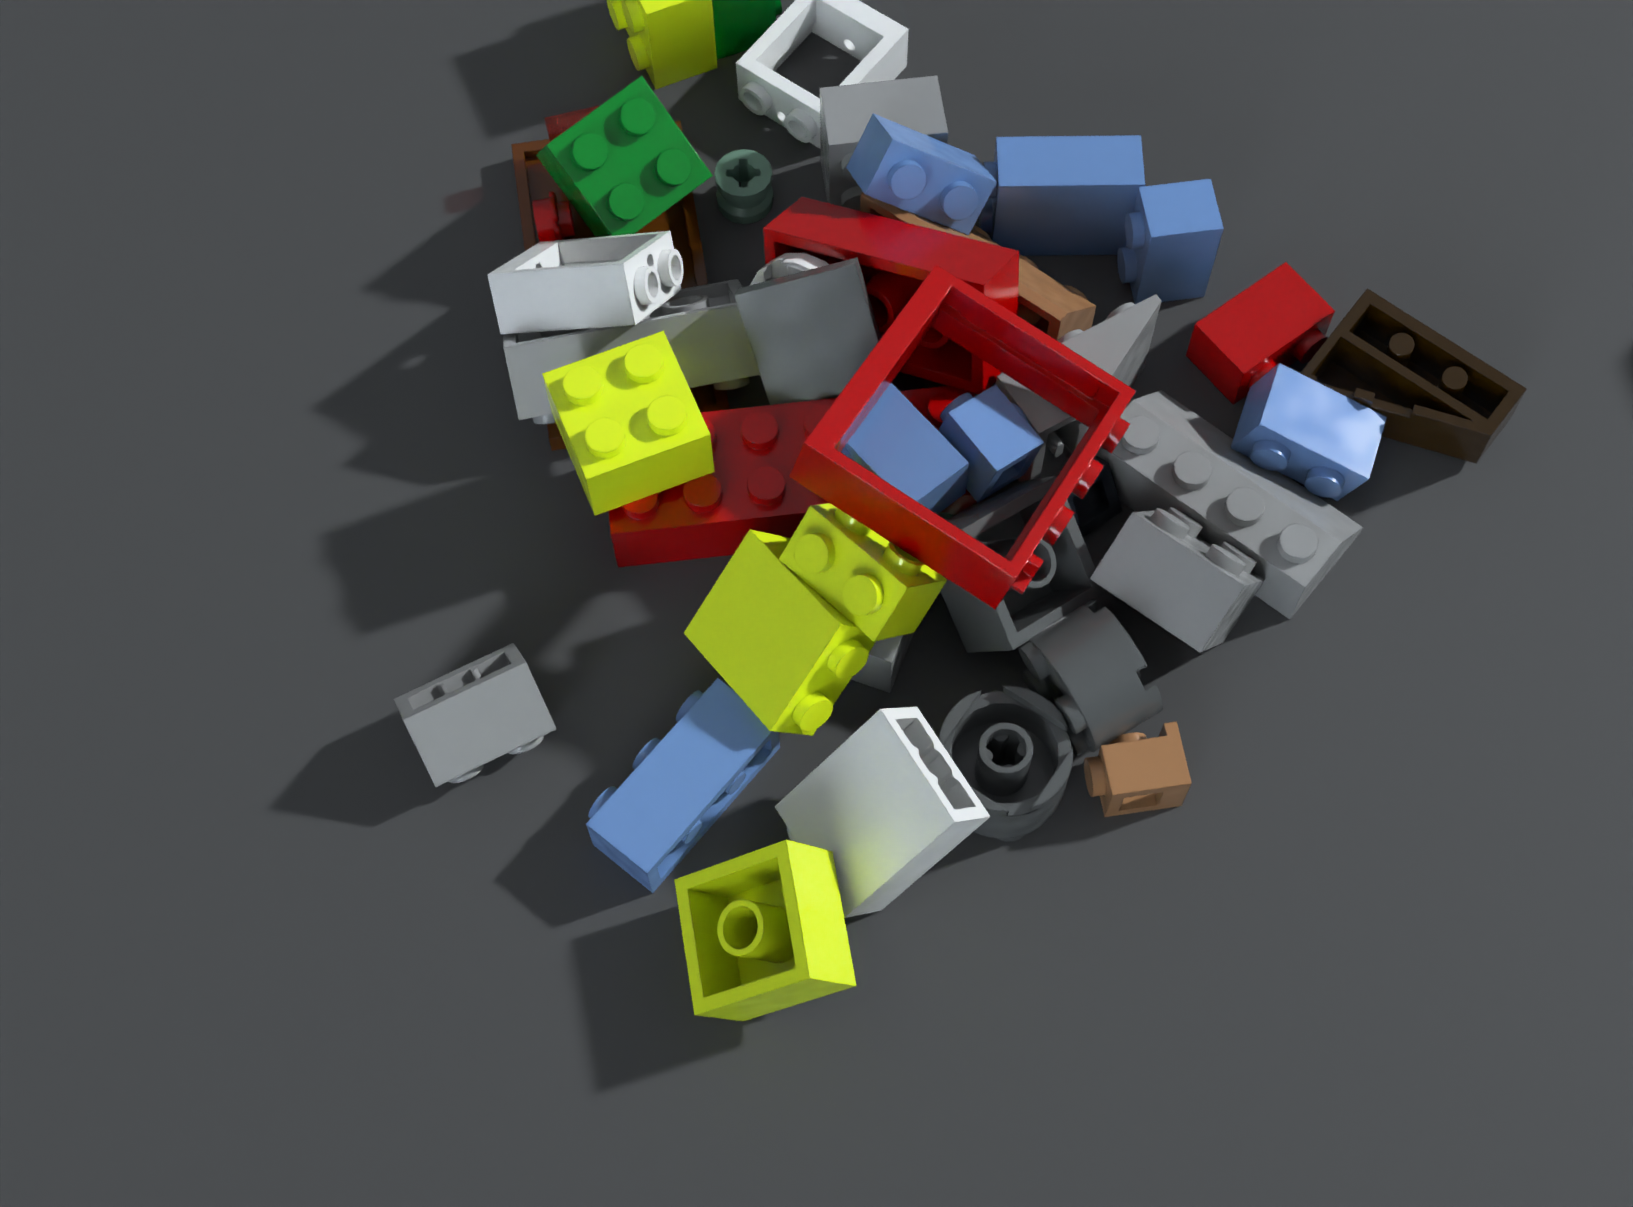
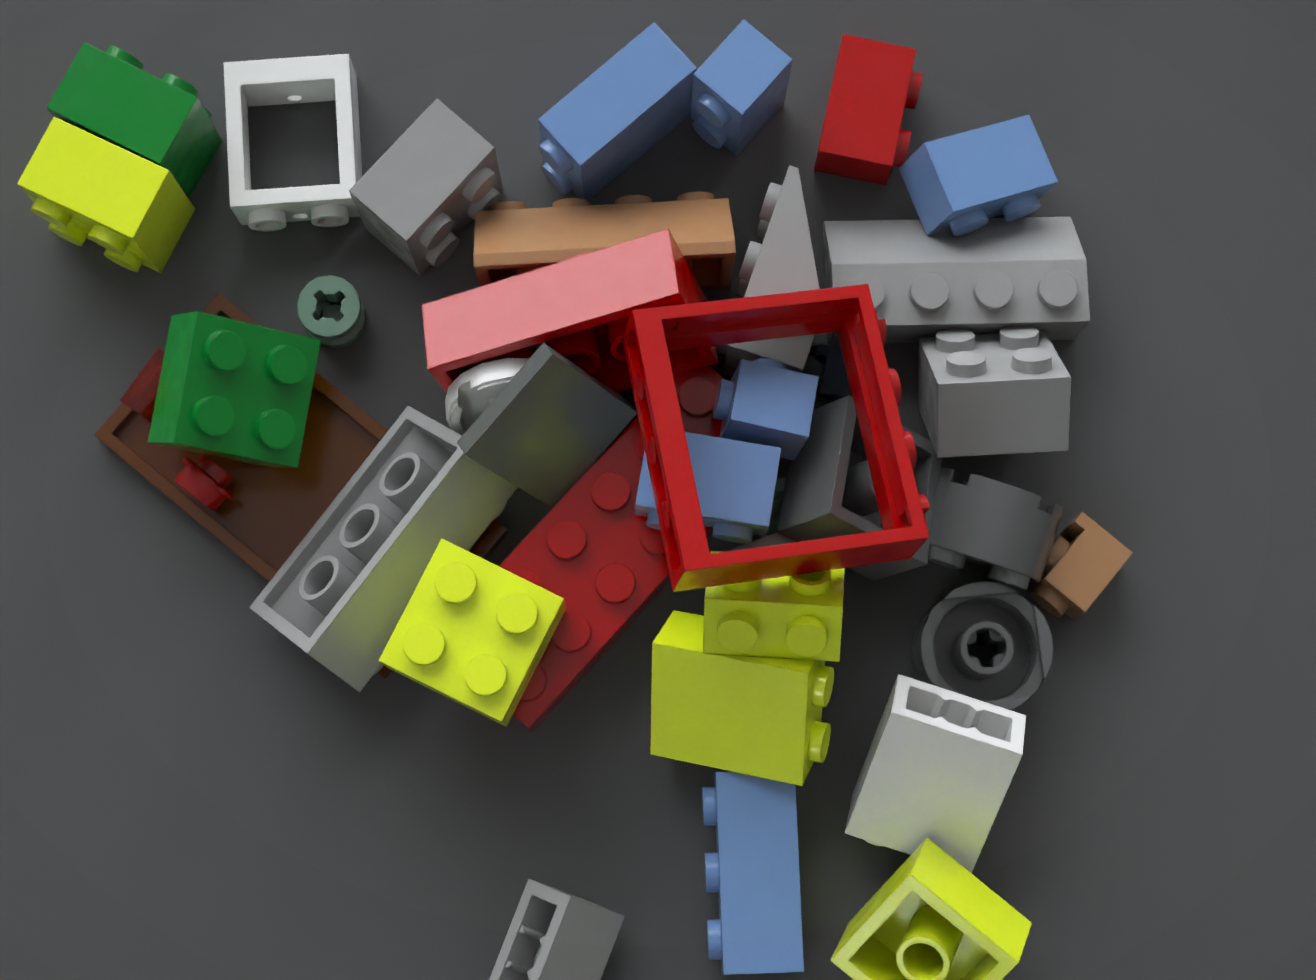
camera: 45 degrees left, 15 degrees up
(586, 283) = (258, 526): white window -> none
(920, 174) = (506, 207): medium blue brick -> none
(1417, 379) = (1017, 65): dark brown wedge -> none

